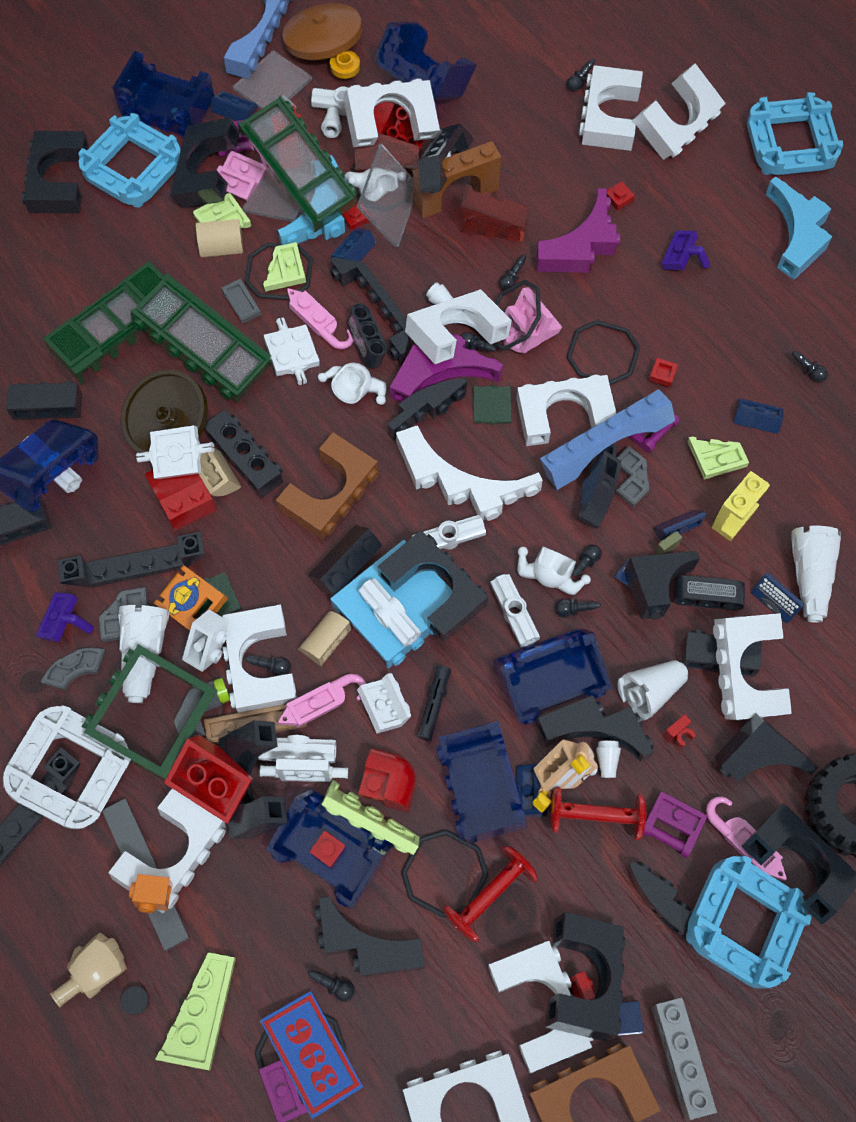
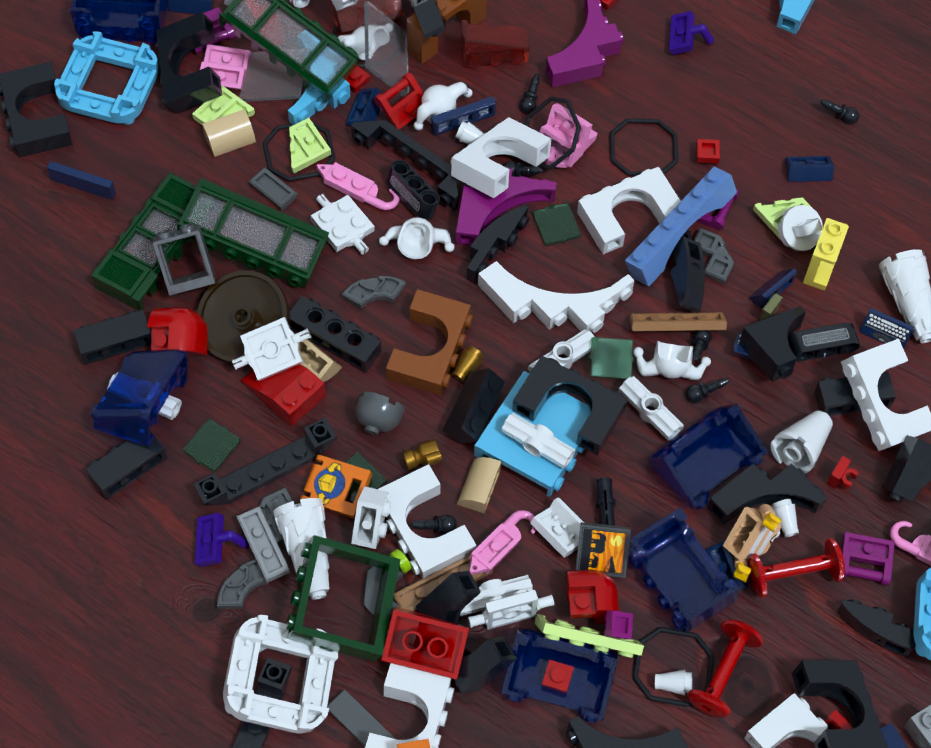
camera: 20 degrees left, 5 degrees down
(72, 248) = (81, 180): none -> dark blue tile
(95, 527) = (211, 445): none -> clear green piece
(101, 411) = (178, 329): none -> red brick
(102, 636) = (263, 544): none -> light grey tile
(125, 368) = (190, 281): none -> flat silver window
(252, 542) = (377, 413): none -> dark grey cylinder
(285, 593) = (425, 454): none -> pearl gold piece
(299, 421) = (374, 289): none -> dark grey tile
(357, 515) = (469, 360): none -> pearl gold cone
(389, 256) = (404, 109): none -> red plate
(400, 818) = (618, 625): none -> magenta tile
(415, 737) = (603, 548): none -> tile
(422, 260) = (438, 100): none -> white piece
(439, 890) = (676, 682): none -> white cone
(447, 276) = (469, 113): none -> dark blue tile
(494, 550) = (611, 358): none -> clear green piece
(572, 532) = (678, 321): none -> medium nougat tile
(725, 471) = (800, 227): none -> white tile

